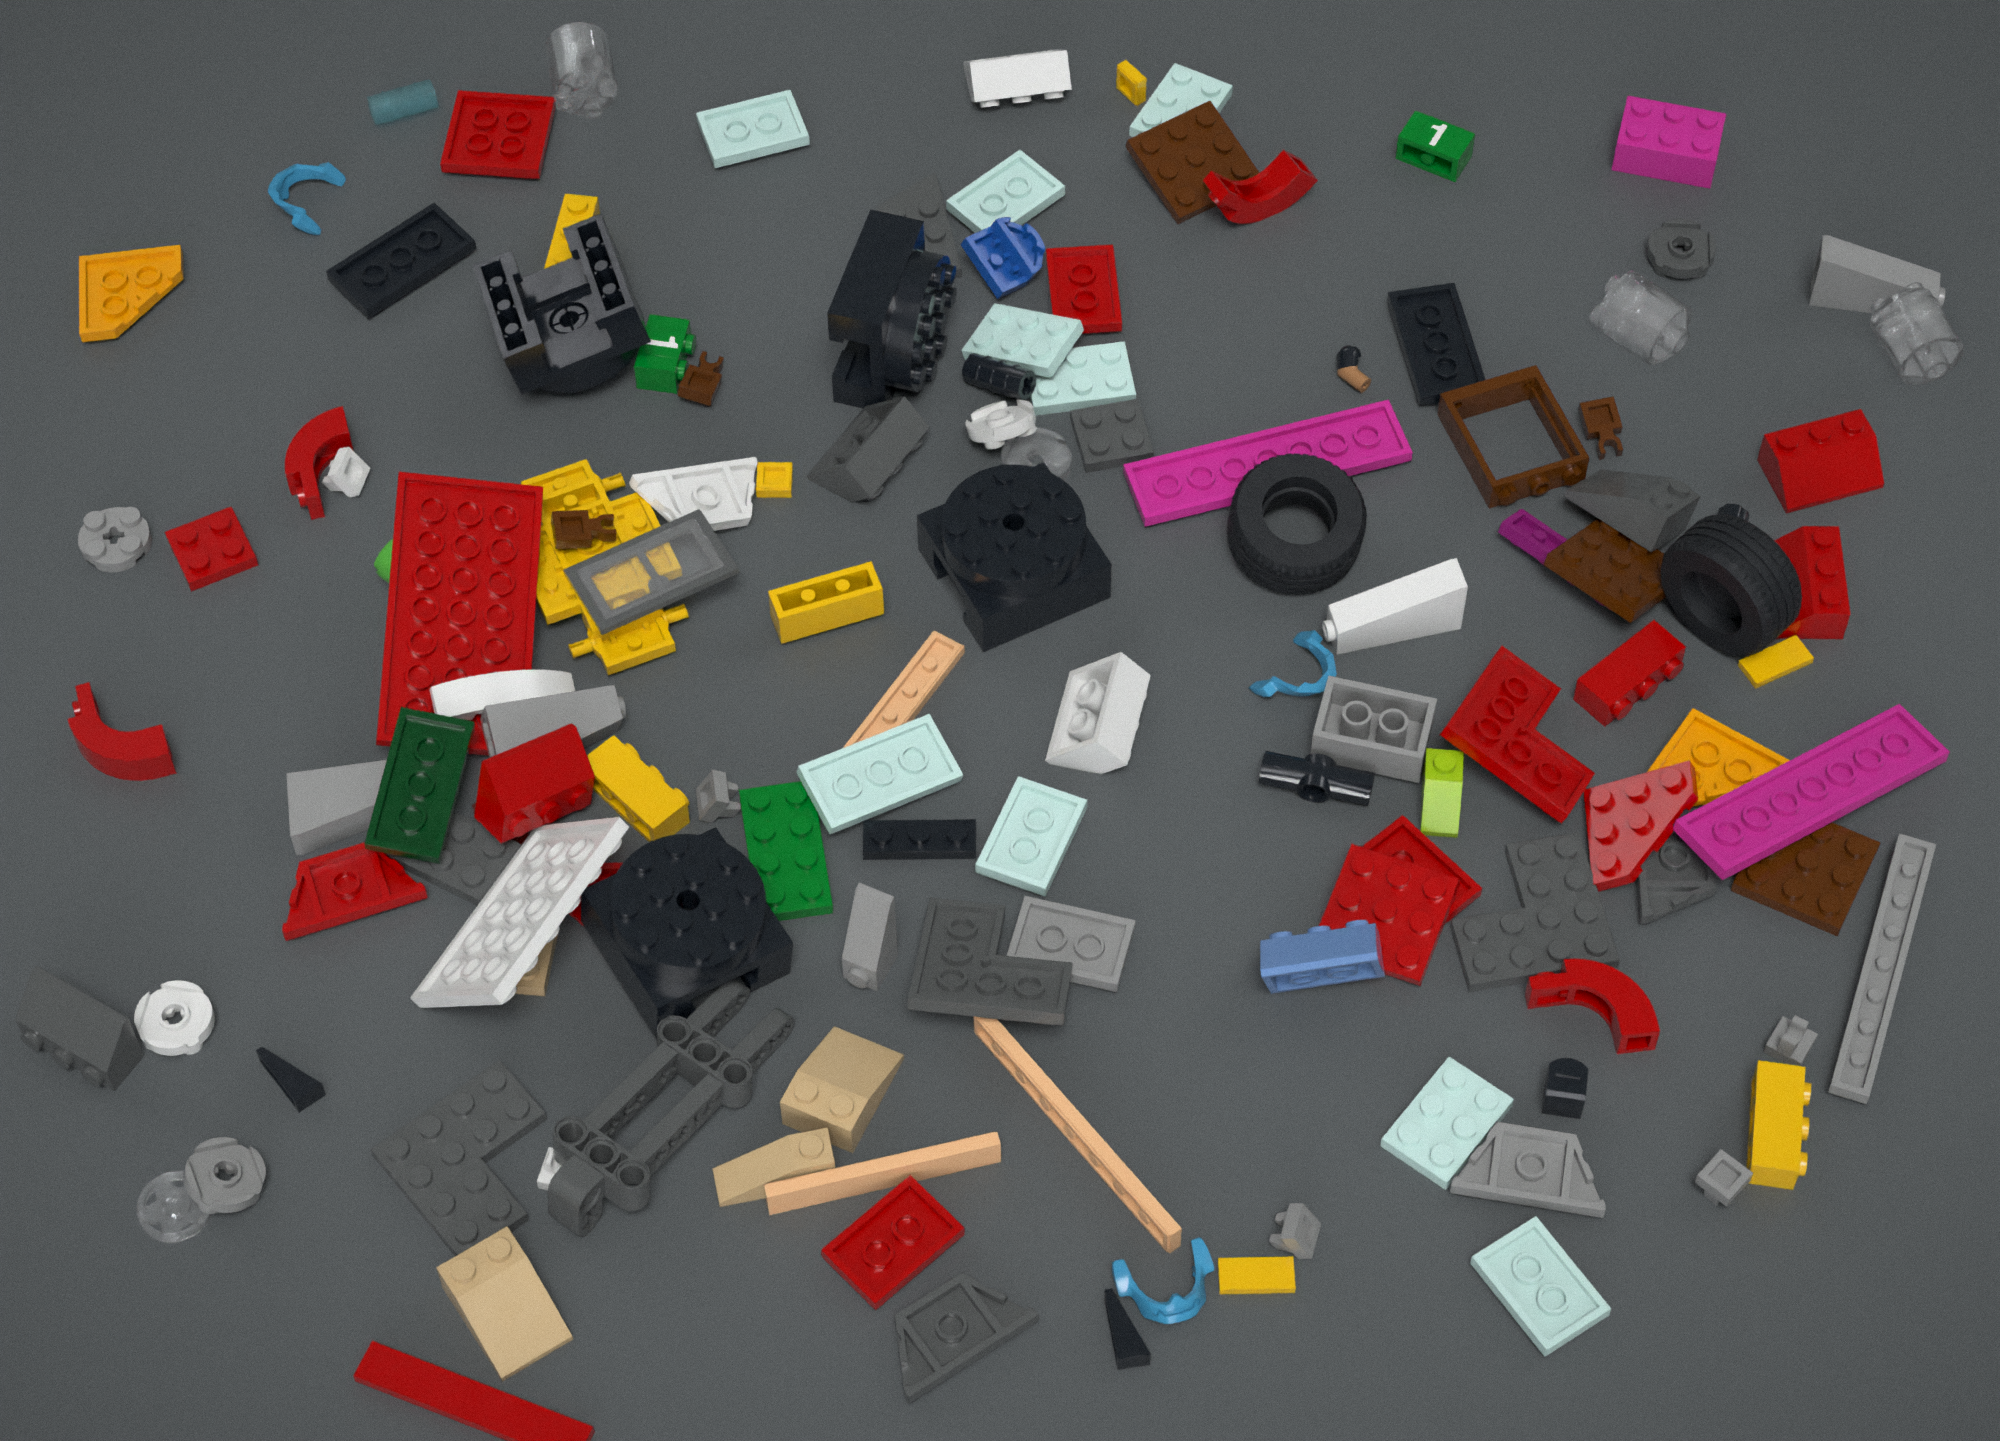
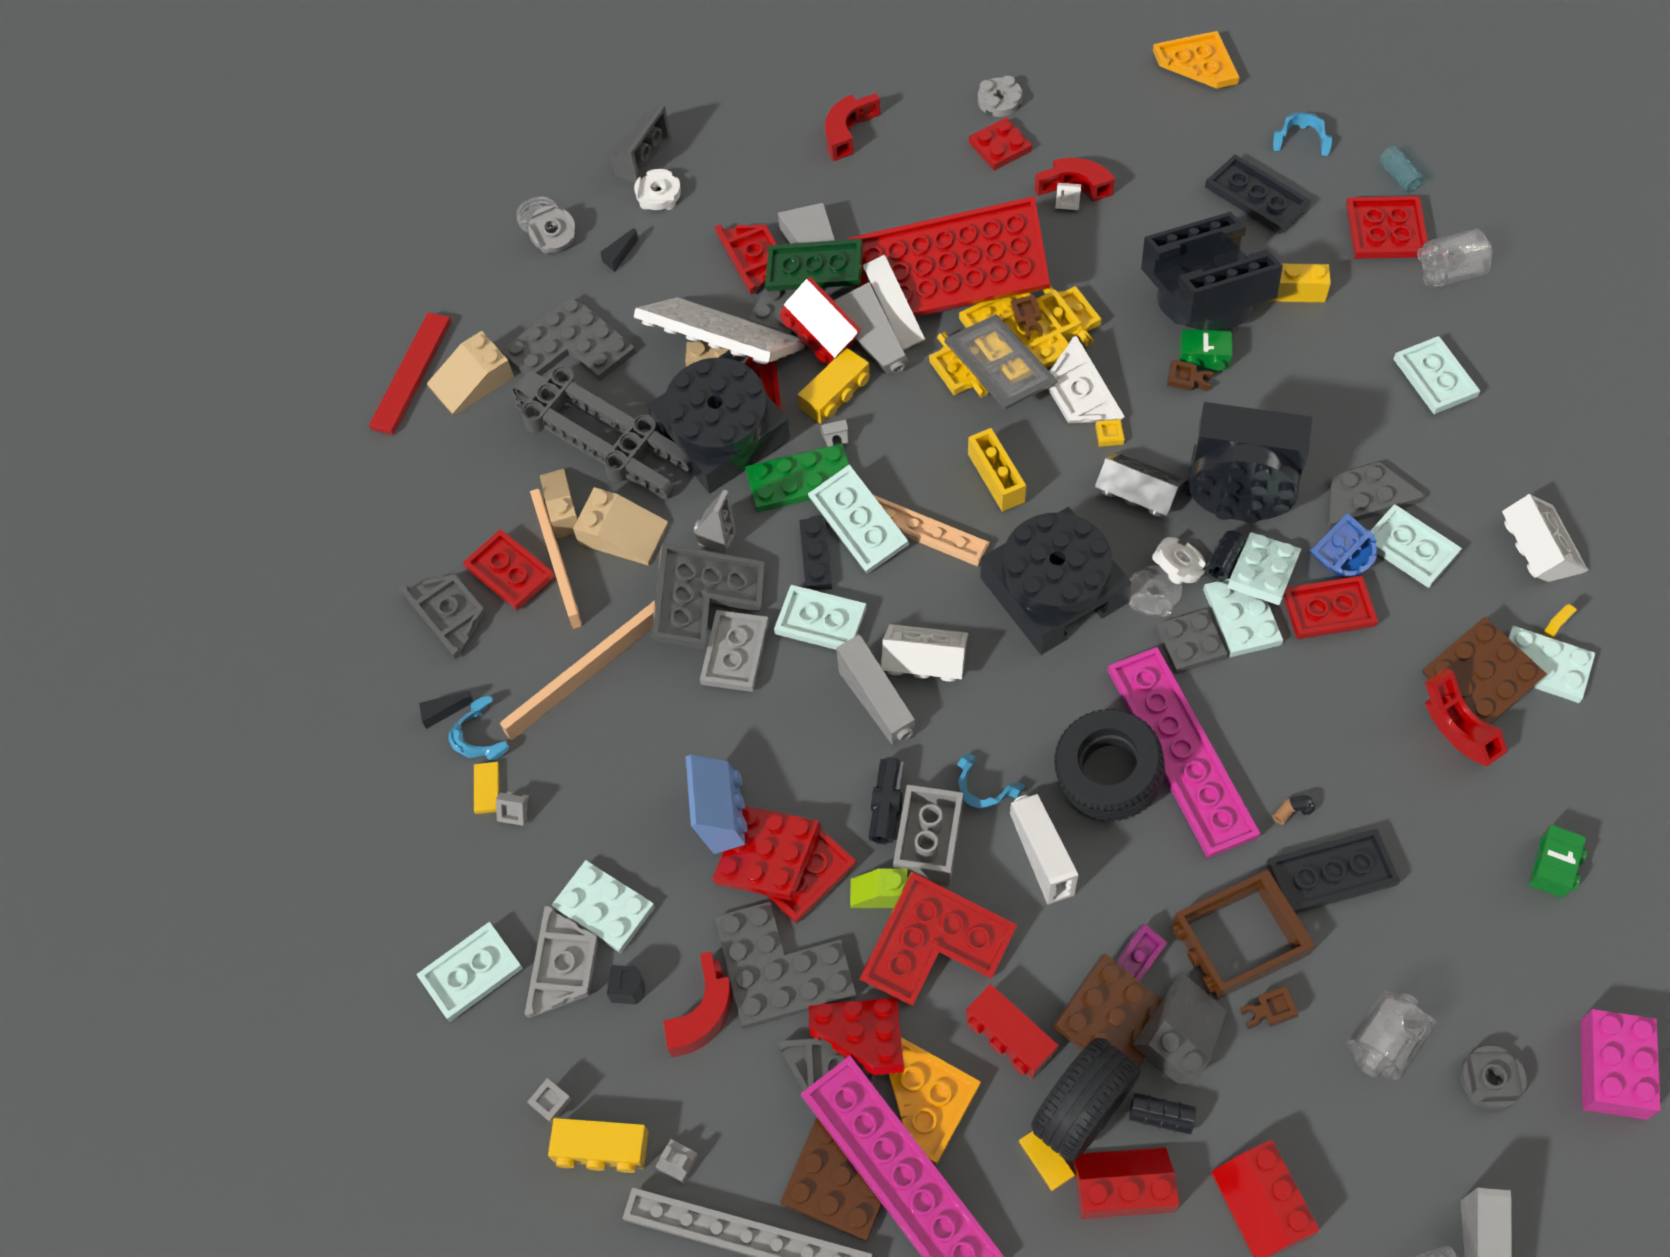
camera: 90 degrees right, 5 degrees up
(1157, 773) = (874, 690): none -> light grey slope

